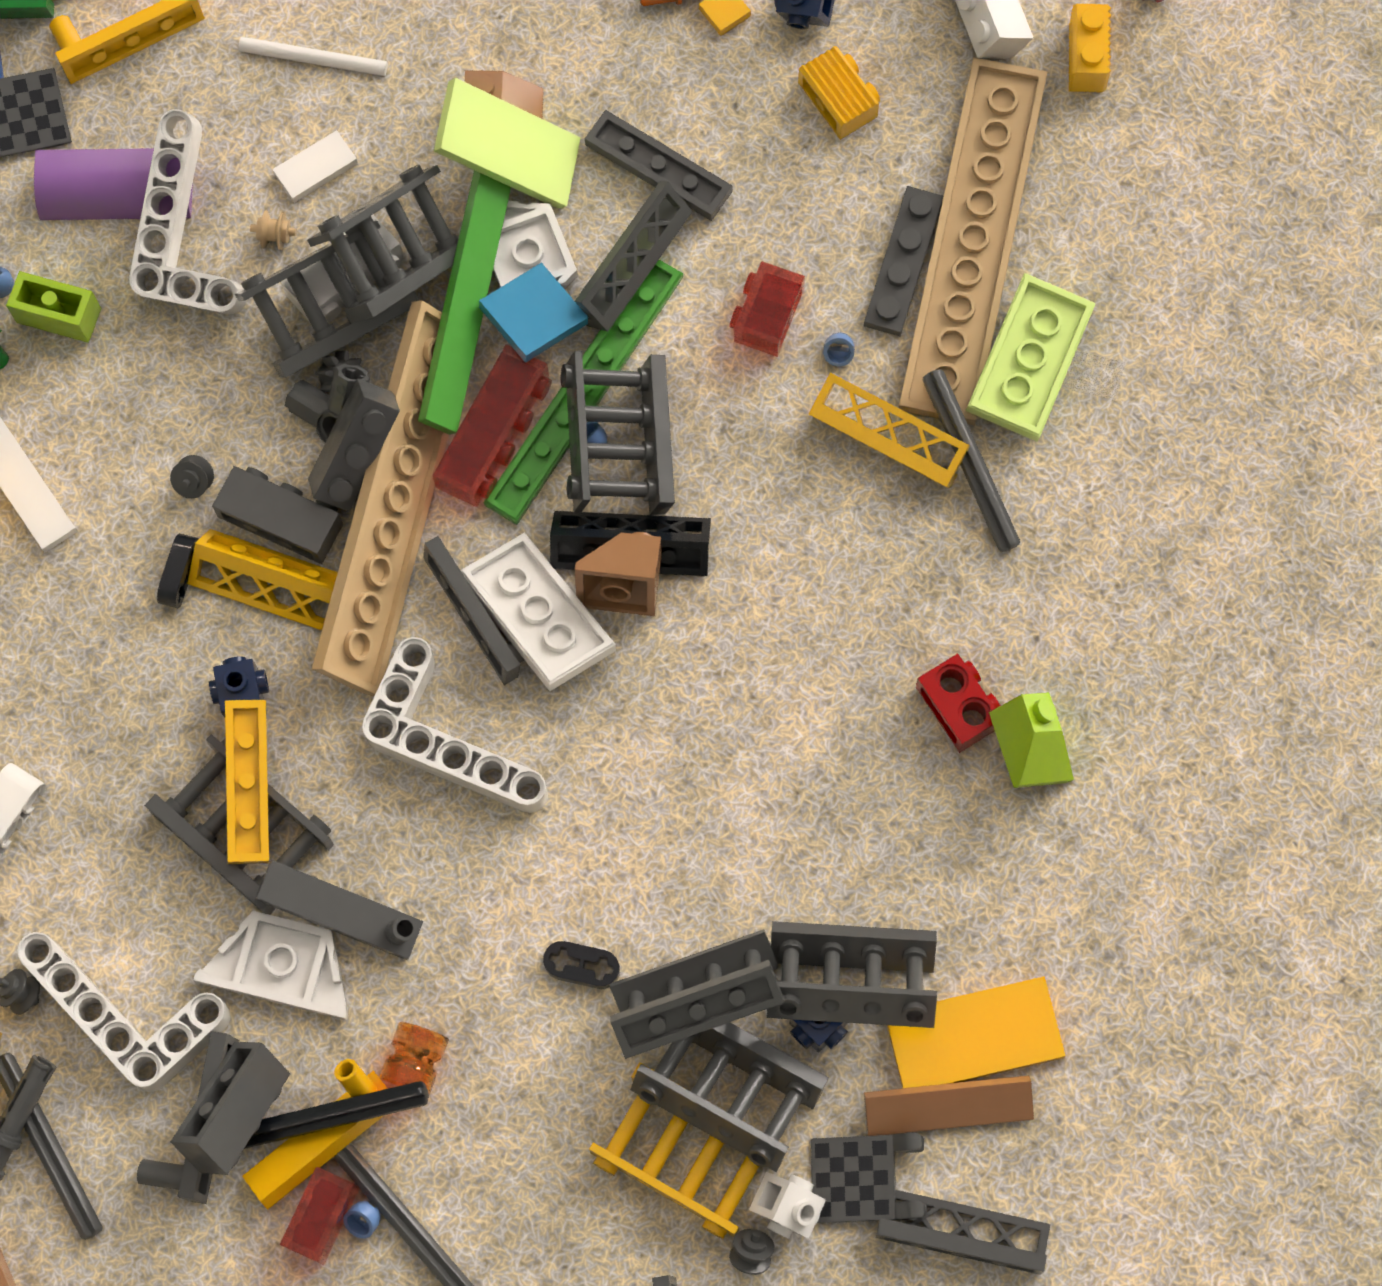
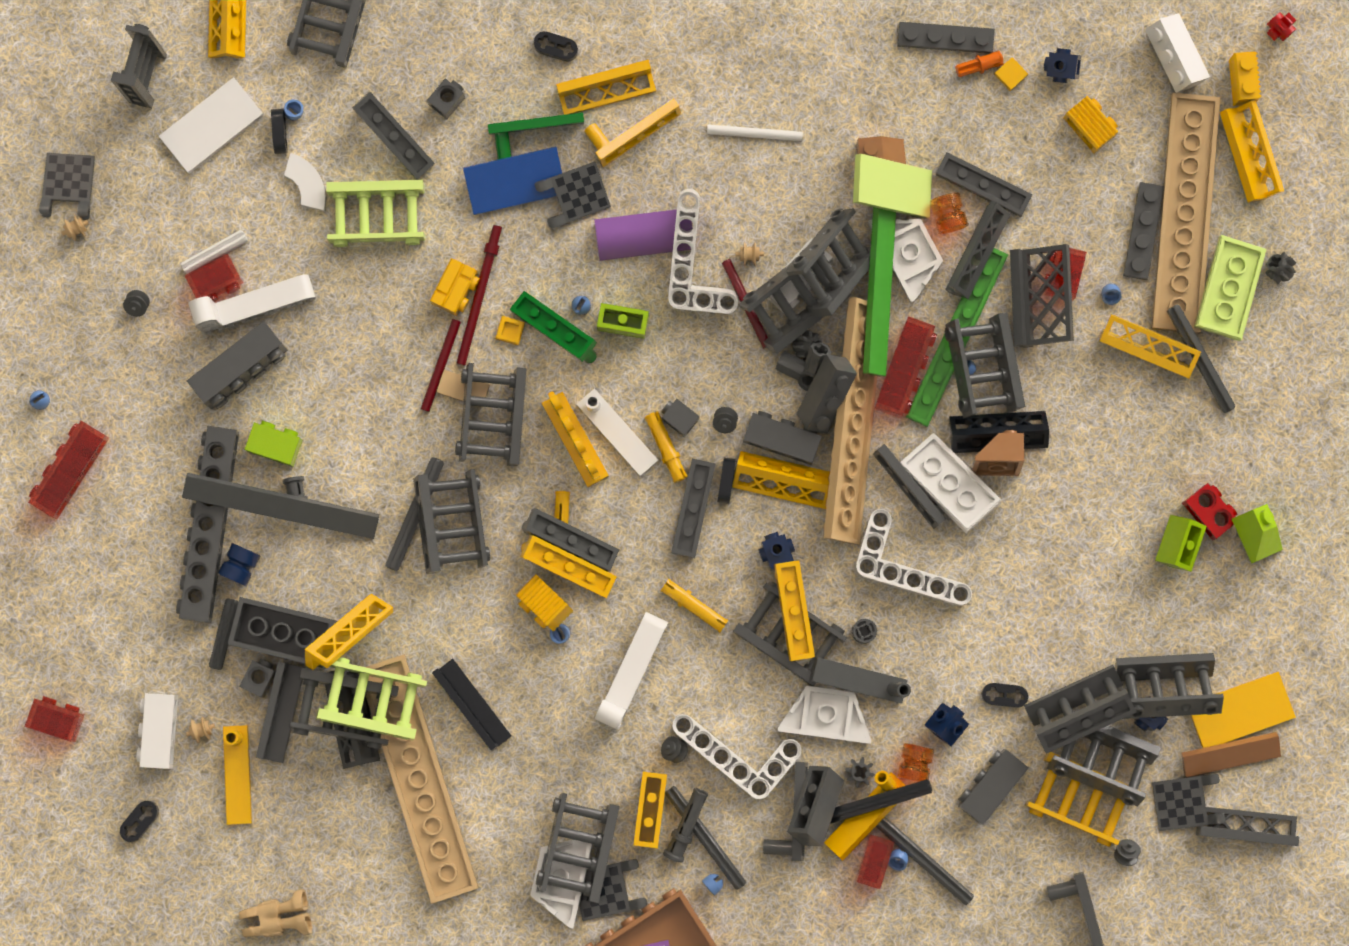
camera: 10 degrees left, 10 degrees up
(45, 1223) = (711, 884): none -> medium blue hinge
(79, 750) = (694, 605): none -> yellow pin
(95, 523) = (667, 450): none -> yellow pin
(118, 609) = (693, 508): none -> dark grey plate
(120, 465) = (679, 417): none -> dark grey brick
(246, 271) = (741, 292): none -> dark red bar
(308, 1061) = (852, 770): none -> dark grey gear
(315, 166) = (768, 207): white tile -> none
(368, 838) = (864, 631): none -> dark grey wheel
(476, 998) = (947, 723): none -> dark blue brick
(533, 312) = (922, 293): dark azure tile -> none
(537, 1112) = (992, 786): none -> dark grey brick
(595, 198) = (950, 221): none -> clear orange wheel
(697, 337) = (1022, 296): none -> dark grey fence
(787, 1205) = (1145, 824): white brick -> none
(902, 746) = (1180, 543): none -> lime brick
(1081, 162) = (1247, 154): none -> yellow fence
(1116, 335) = (1280, 267): none -> dark grey gear

